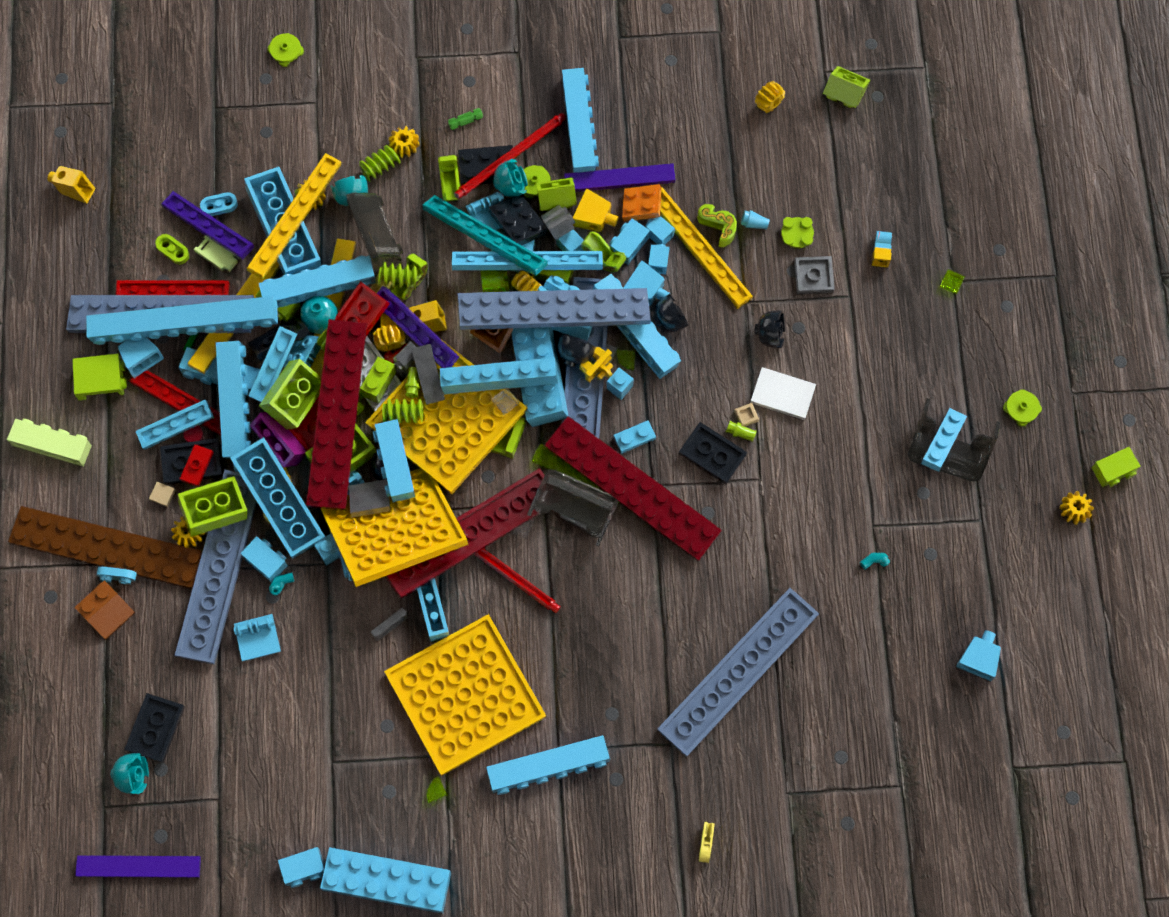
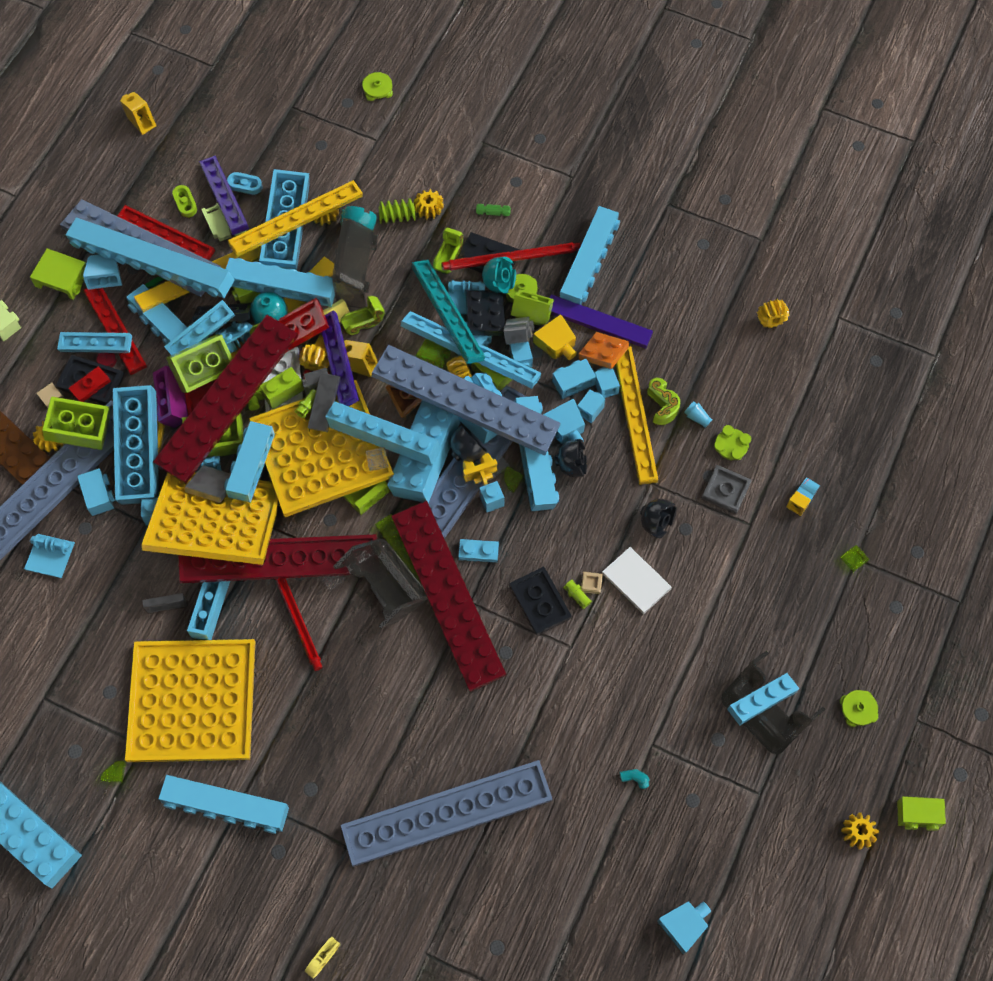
camera: 30 degrees right, 5 degrees down
(232, 397) = (152, 339): medium azure brick -> none
(279, 582) = (97, 518): teal arm -> none
(398, 275) = (350, 308): lime piece -> none
(402, 411) = (283, 423): lime piece -> none
(611, 260) = (546, 384): lime animal -> none
(846, 87) = (849, 338): lime slope -> none

